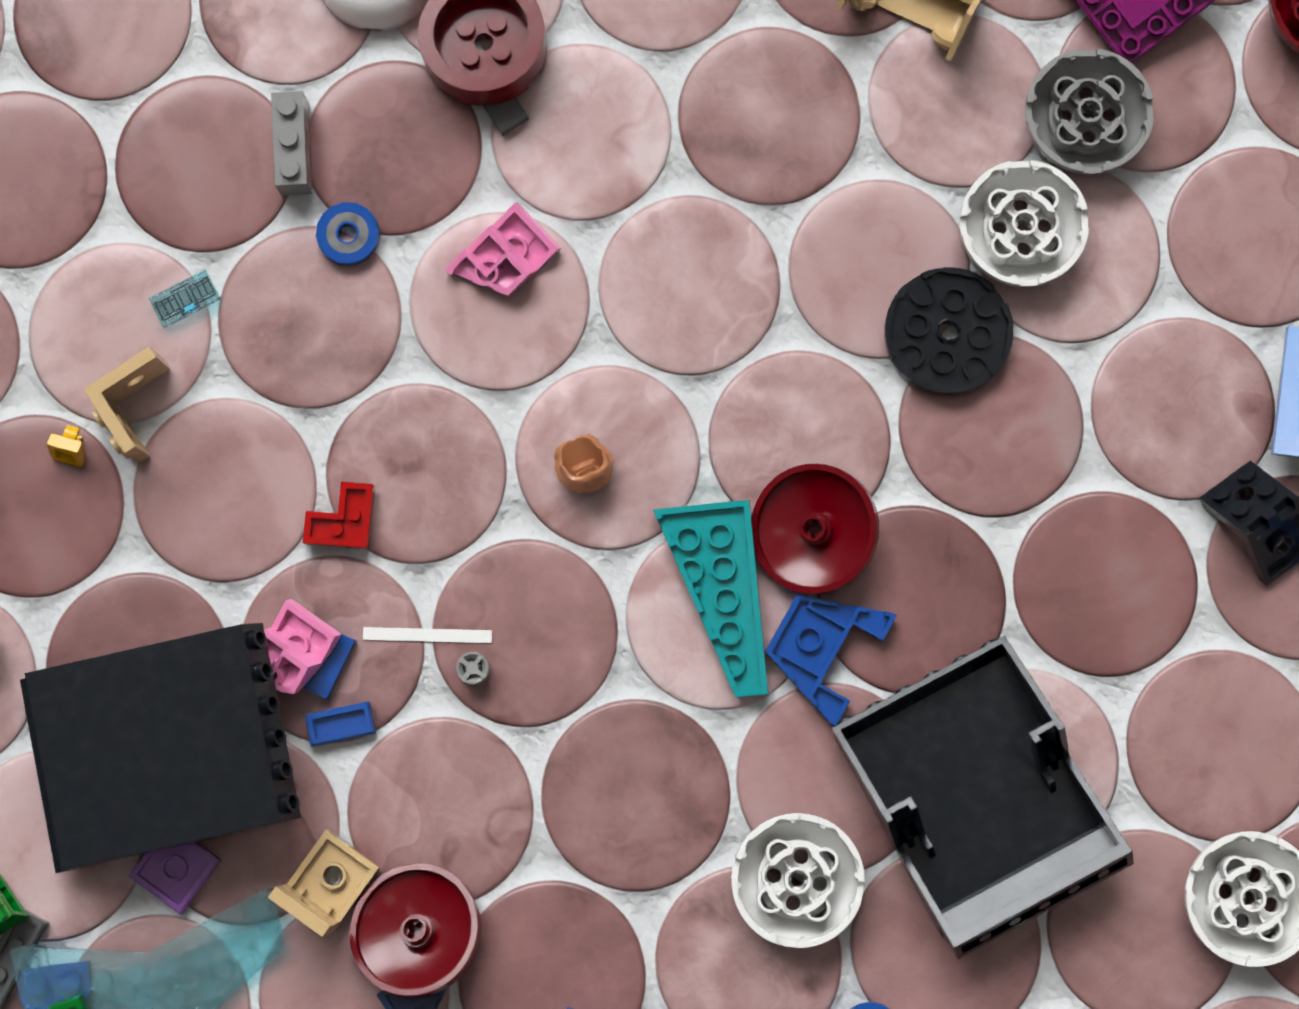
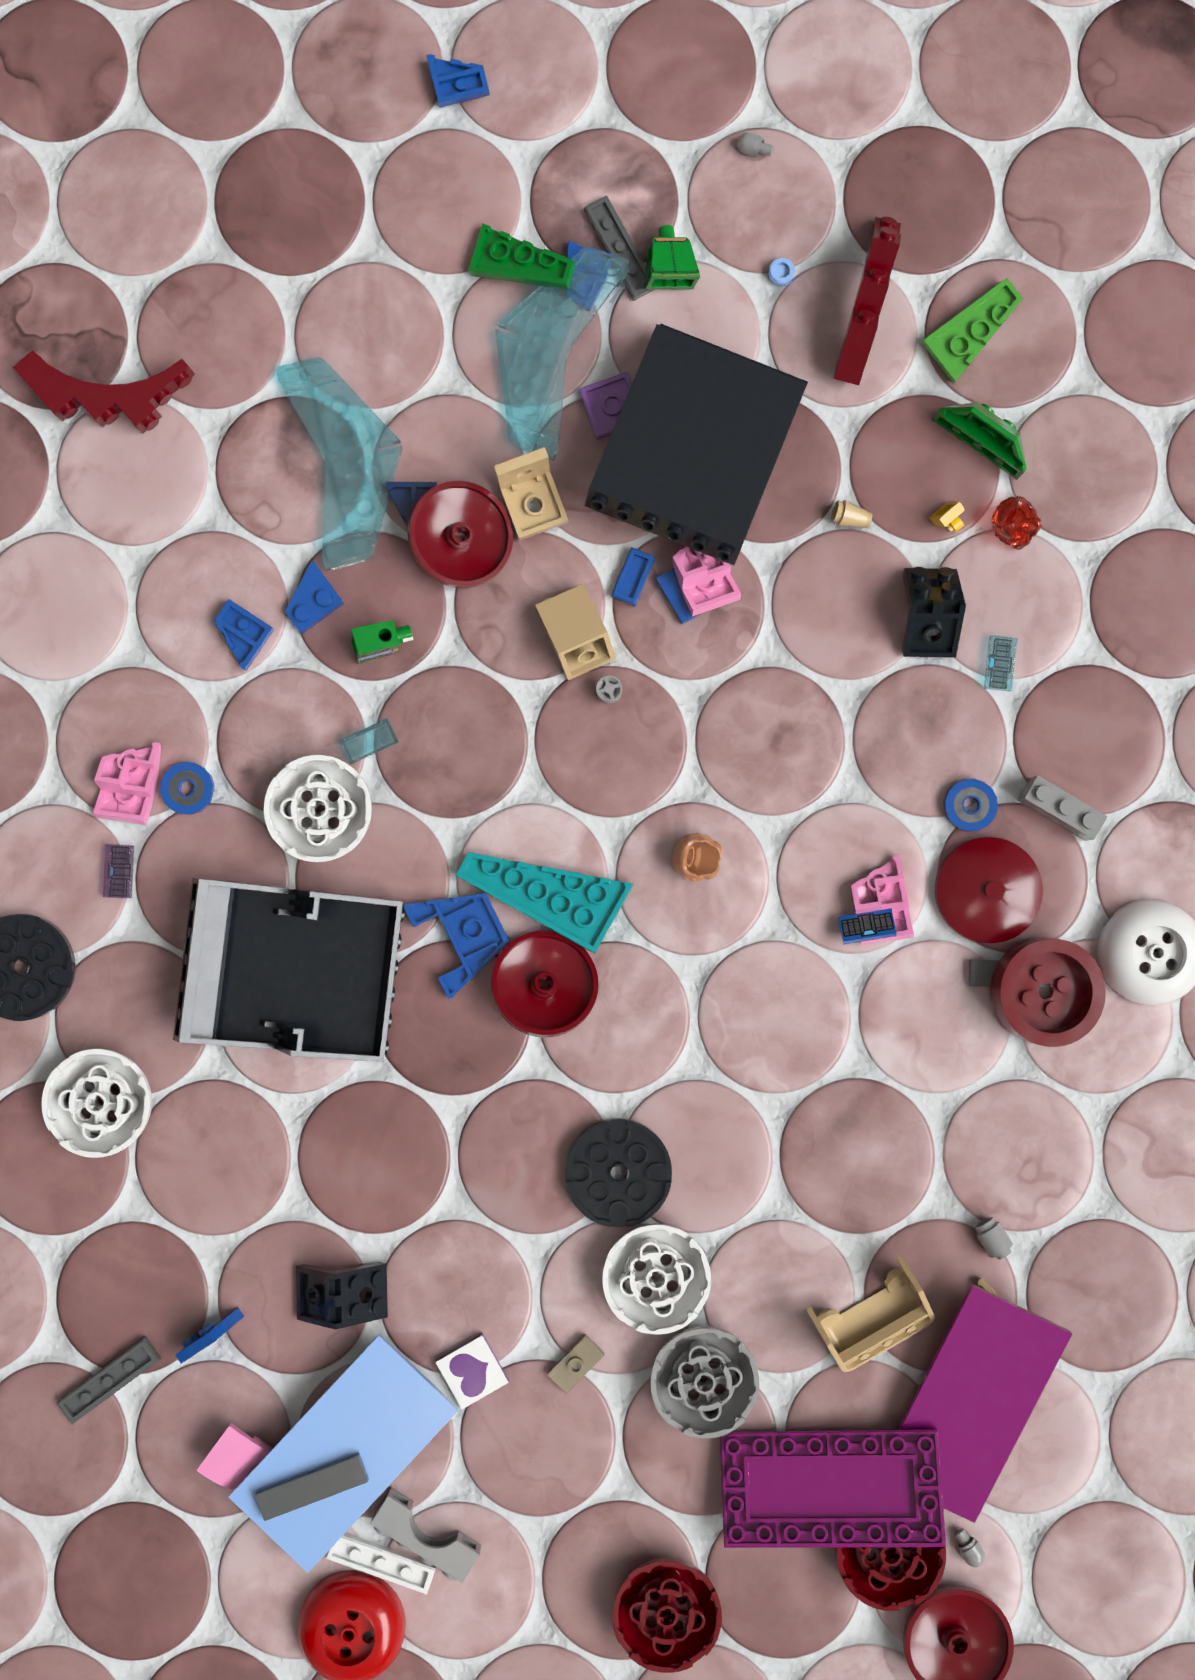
camera: 120 degrees right, 5 degrees up
(30, 376) = (1015, 522): none -> clear red hair
(116, 387) = (953, 556): tan bracket -> none
(131, 546) = (850, 515): none -> tan cone
(175, 398) = (934, 603): none -> black bracket
(349, 526) = (764, 672): red plate -> none
(421, 161) = (988, 890): none -> dark red dish
(427, 635) = (653, 675): white sticker -> none
(435, 742) = (576, 631): none -> tan slope
(537, 252) = (867, 926): none -> tile
(593, 947) = (369, 646): none -> green torso
(693, 879) = (369, 741): none -> clear light blue tile
(1161, 247) = (575, 1363): none -> dark tan plate
(1241, 342) = (472, 1371): none -> tile

